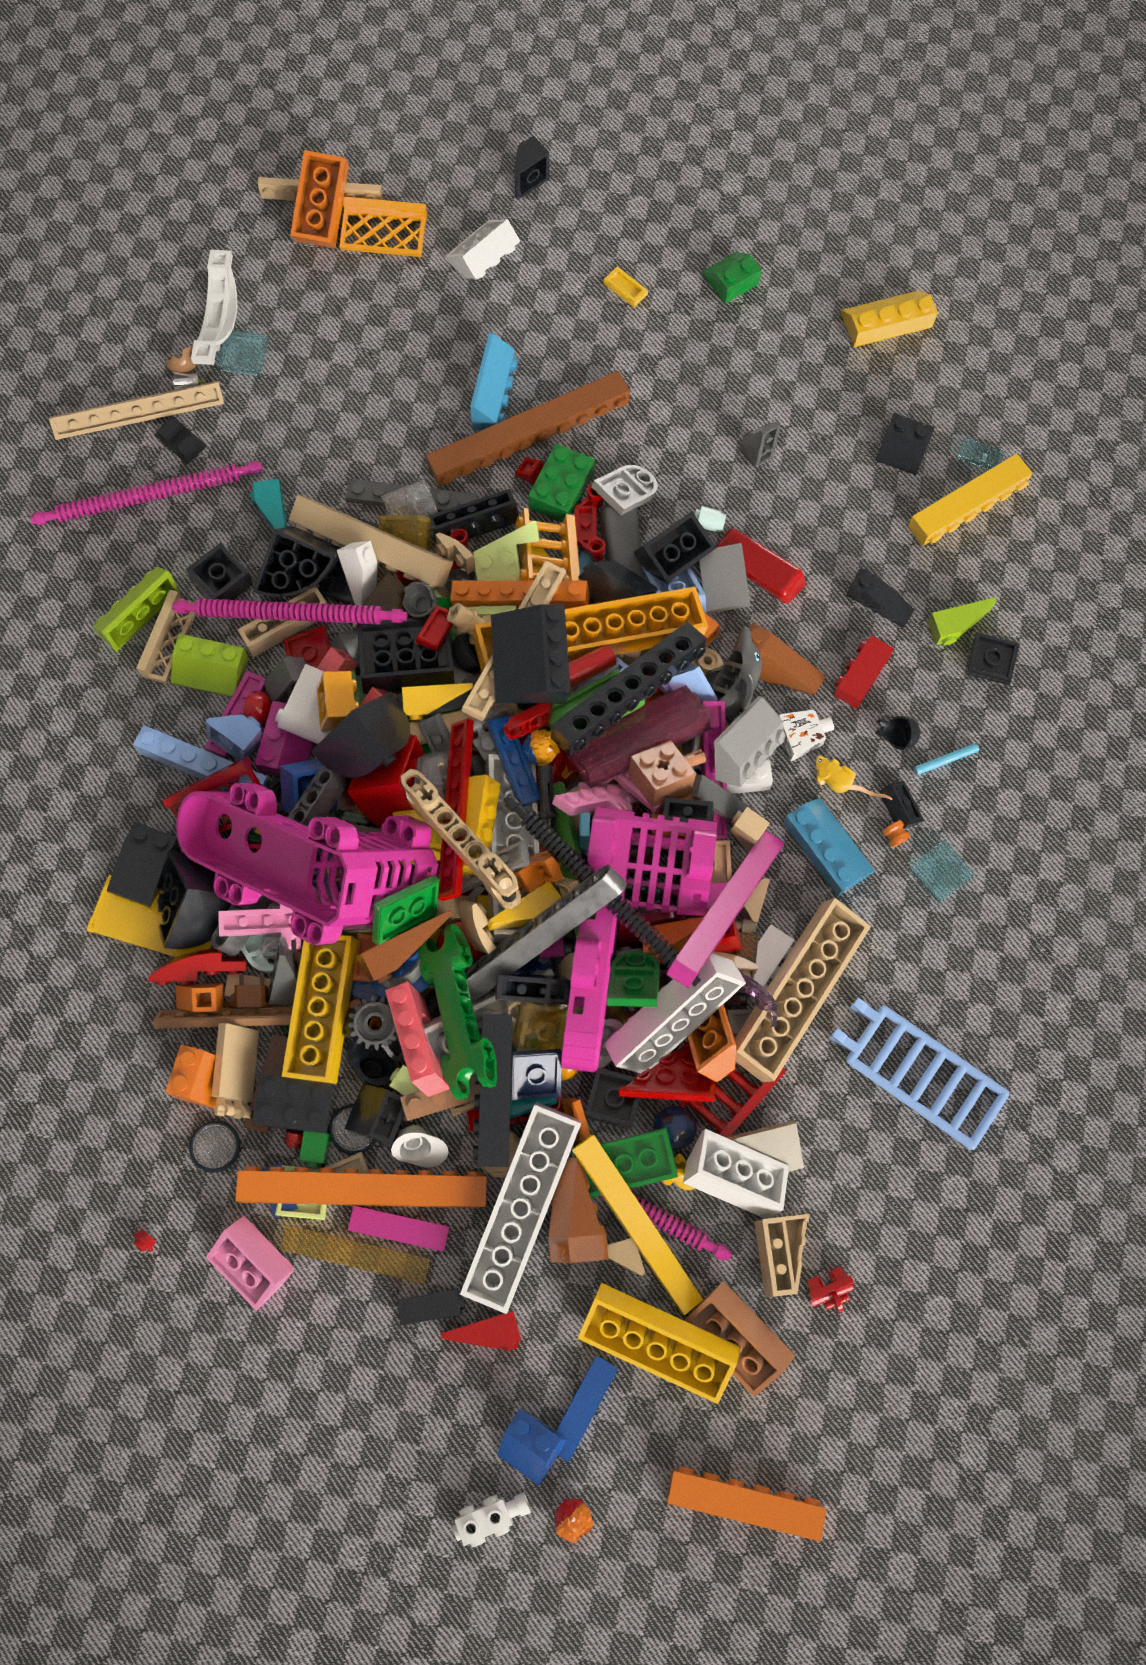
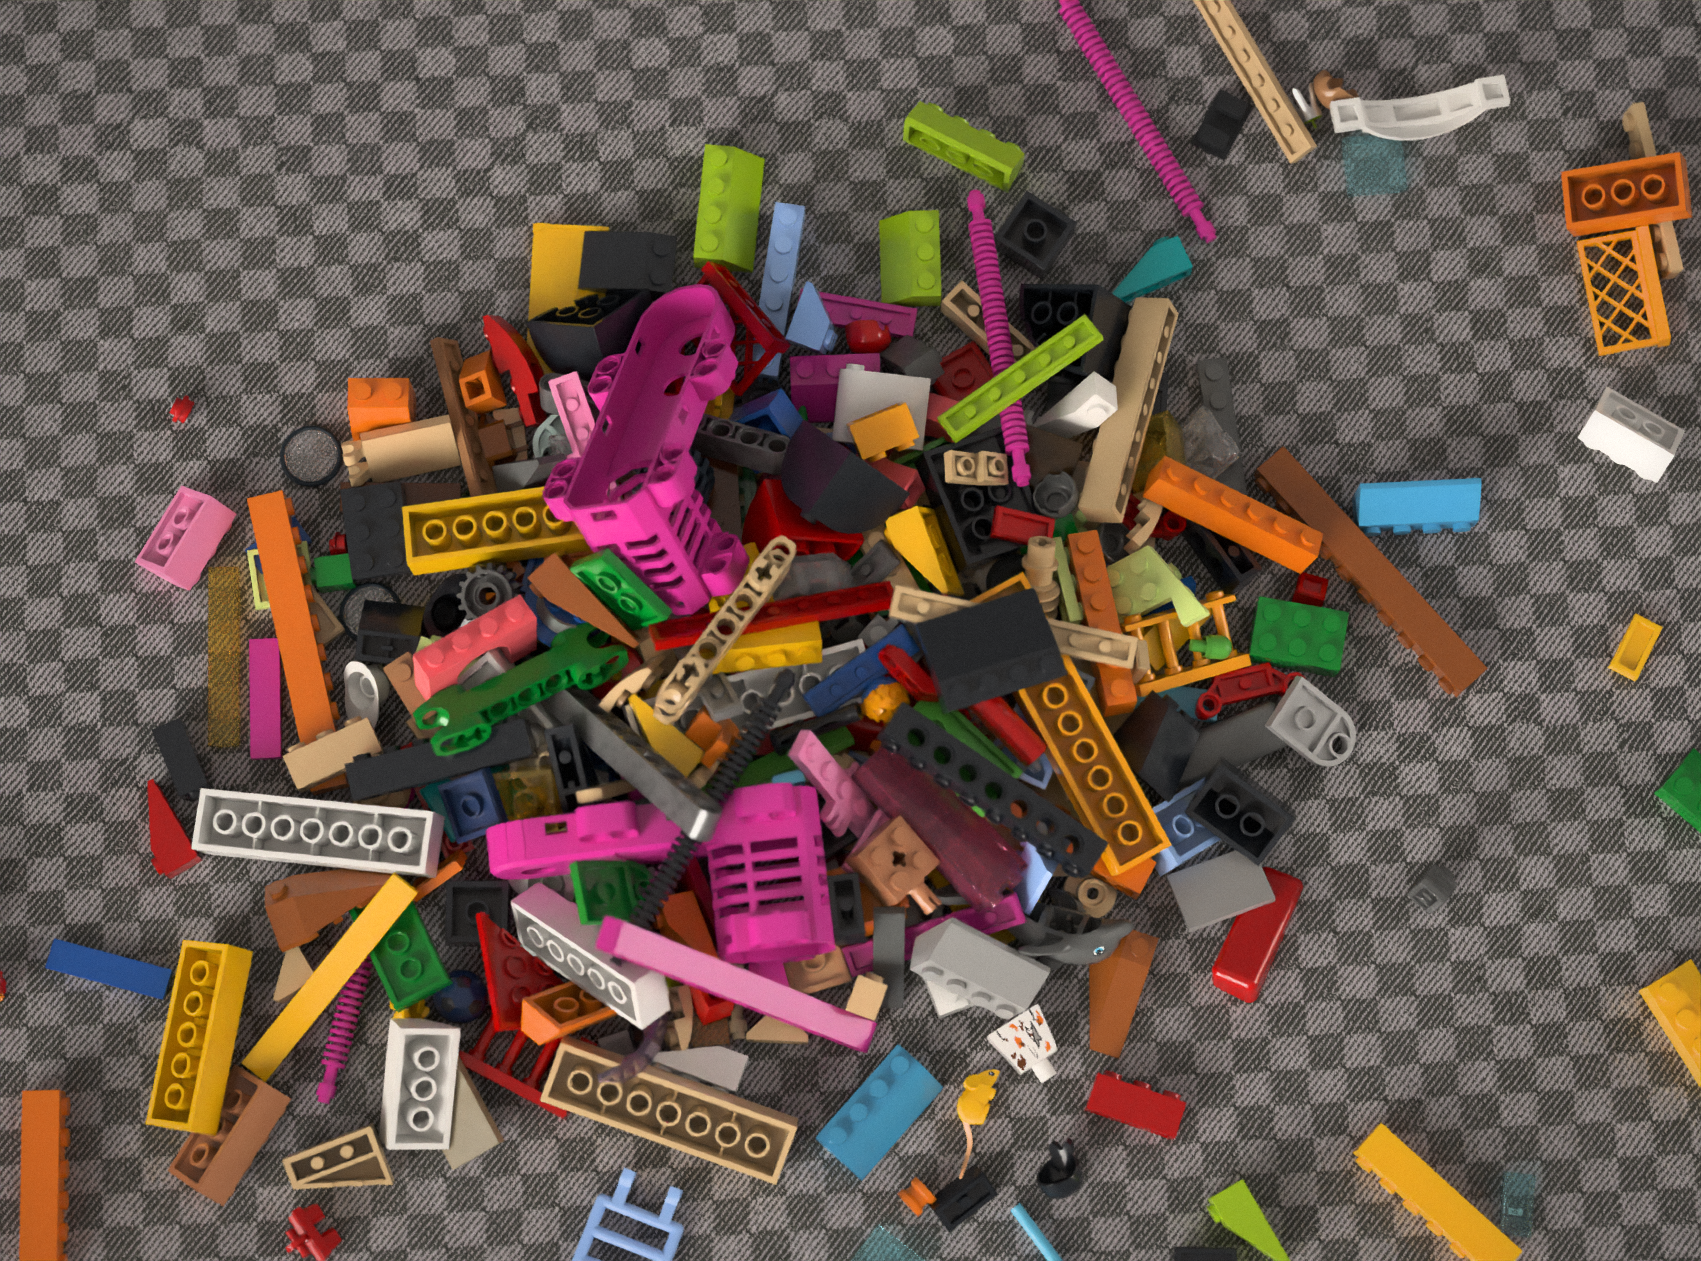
camera: 75 degrees right, 5 degrees up
(124, 784) = (728, 208): none -> lime slope
(158, 639) = (935, 186): tan fence -> none
(327, 598) = (1020, 378): none -> lime tile
(384, 645) = (976, 469): none -> tan slope
(461, 1179) = (327, 755): none -> tan brick
(466, 493) = (1232, 514): none -> orange brick
(530, 1446) = (53, 918): blue slope -> none
(555, 965) = (604, 791): none -> tan tile
(556, 532) = (1212, 646): none -> bright green cylinder
(710, 518) = (1303, 848): light aqua brick -> none
(879, 597) = (1250, 1107): black slope -> none
(905, 443) = (1496, 1092): black slope -> none

